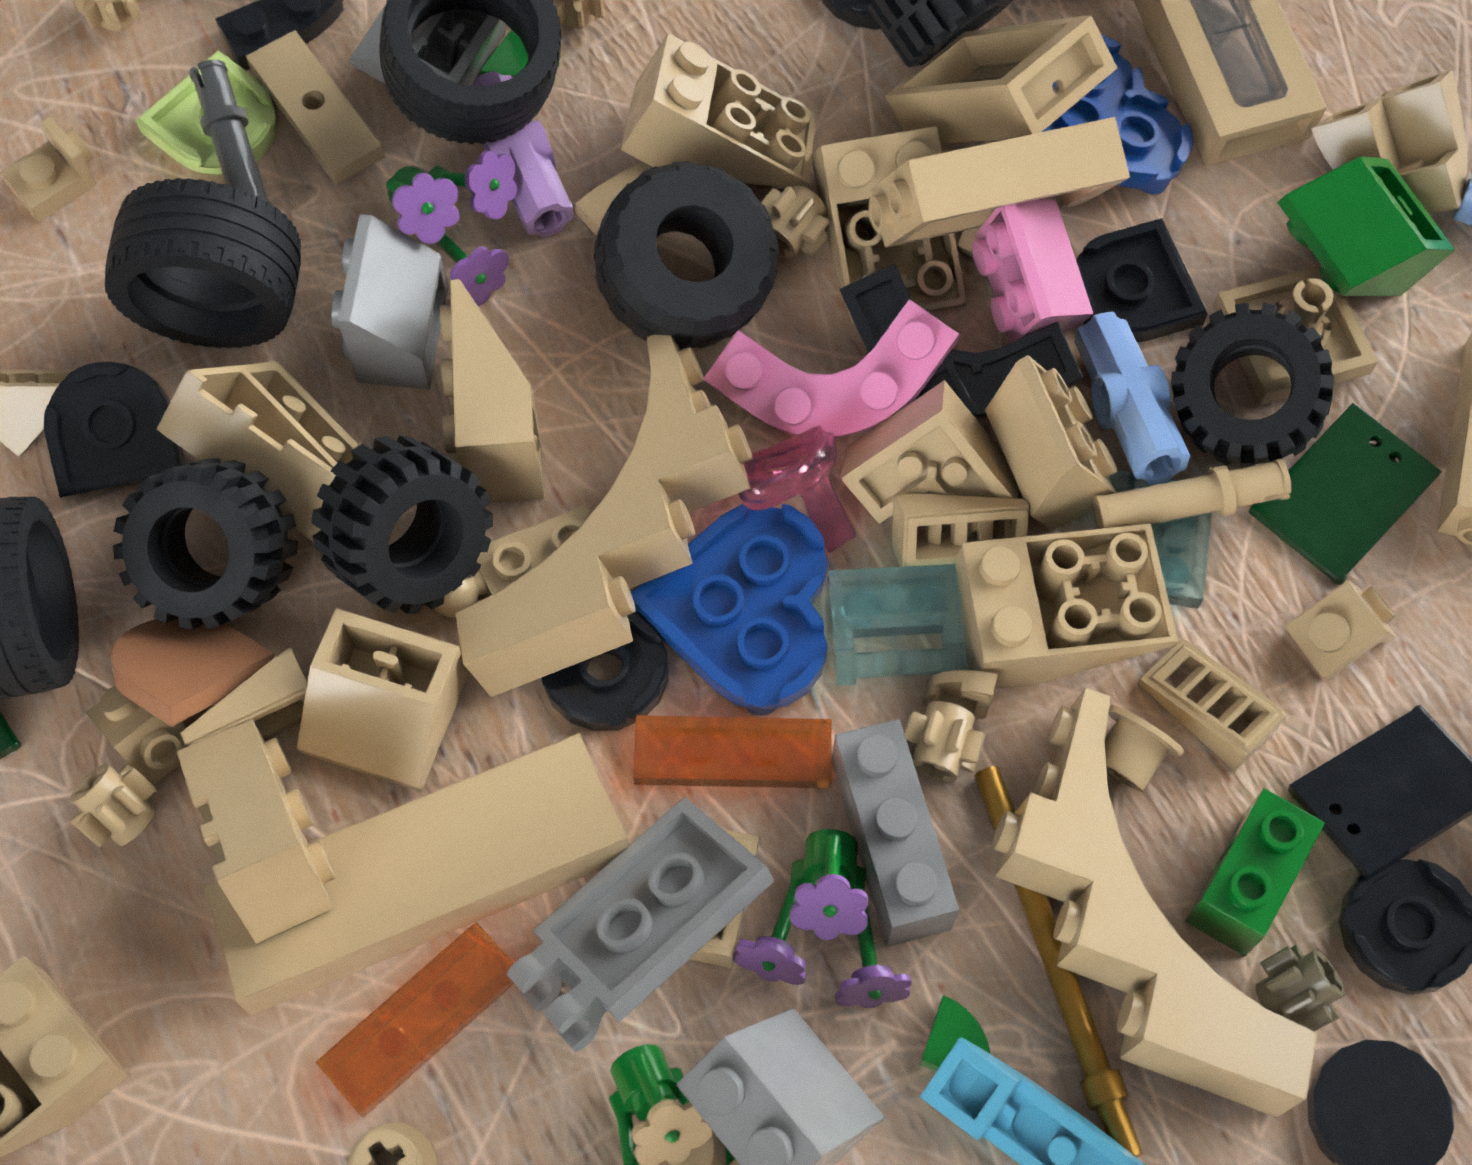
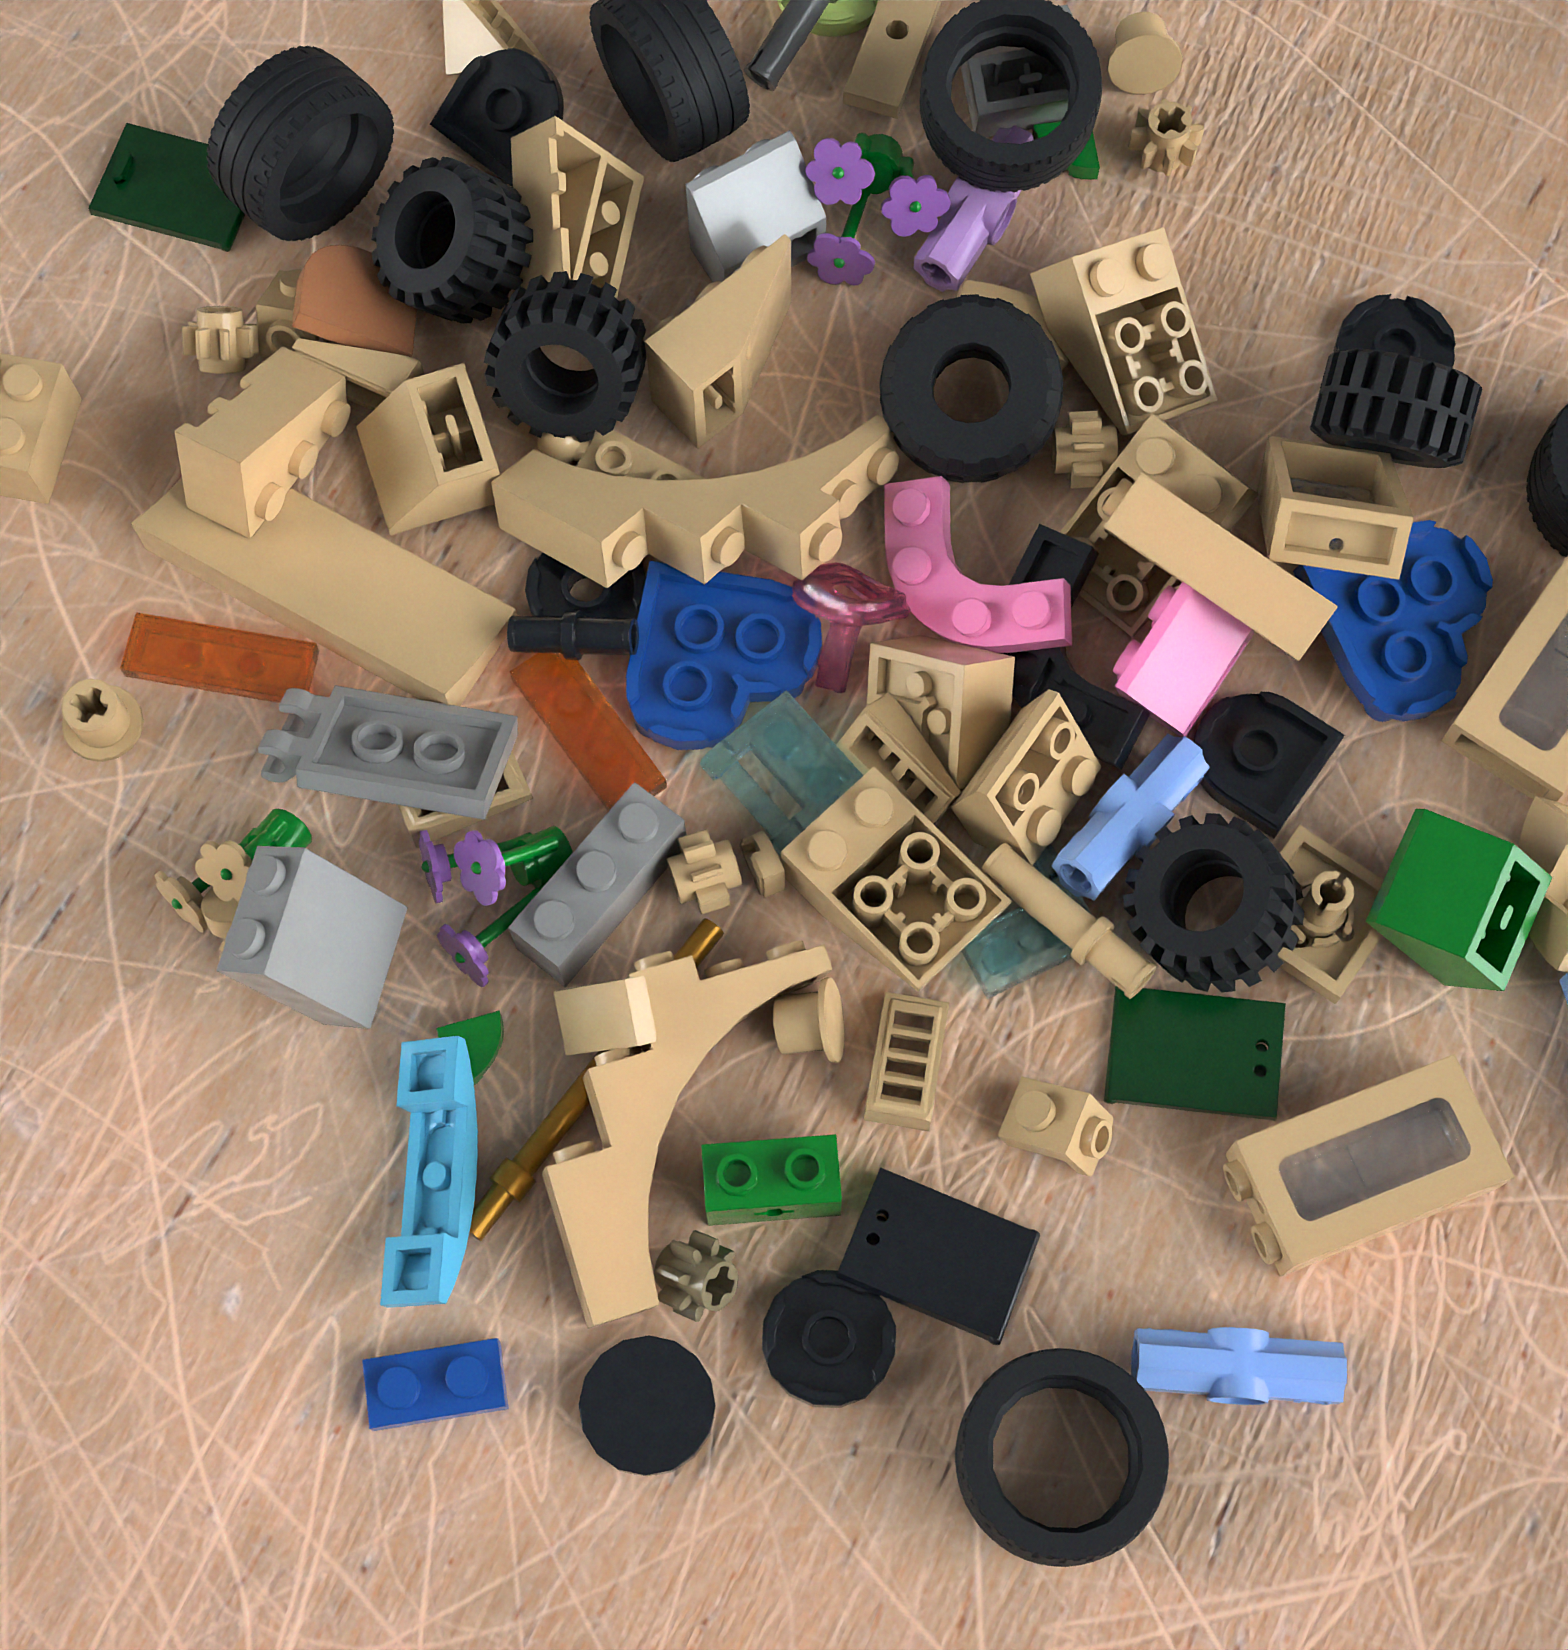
camera: 55 degrees right, 5 degrees up
(651, 698) = (573, 635): none -> black pin
(1027, 903) = (605, 1016): none -> tan tile

